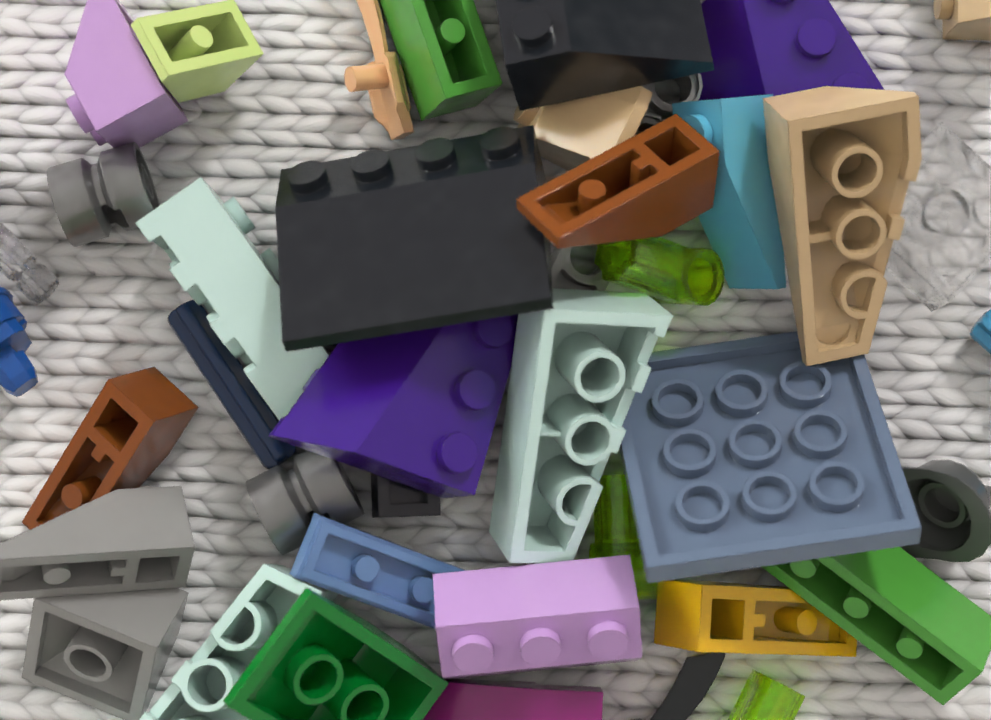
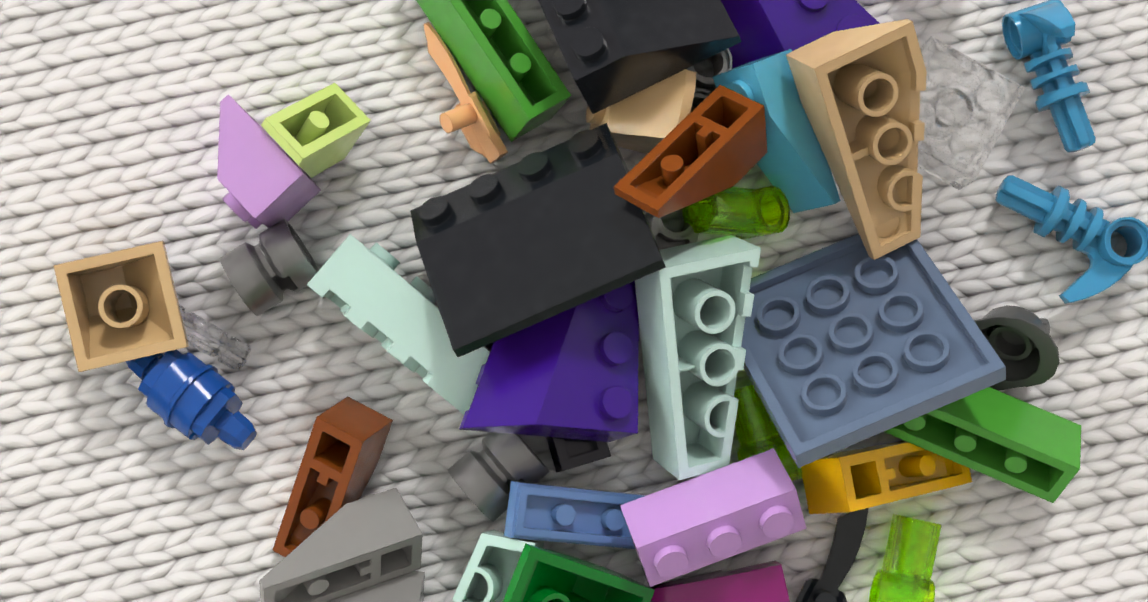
camera: 20 degrees left, 0 degrees up
(229, 383) = (412, 393): dark blue axle -> none

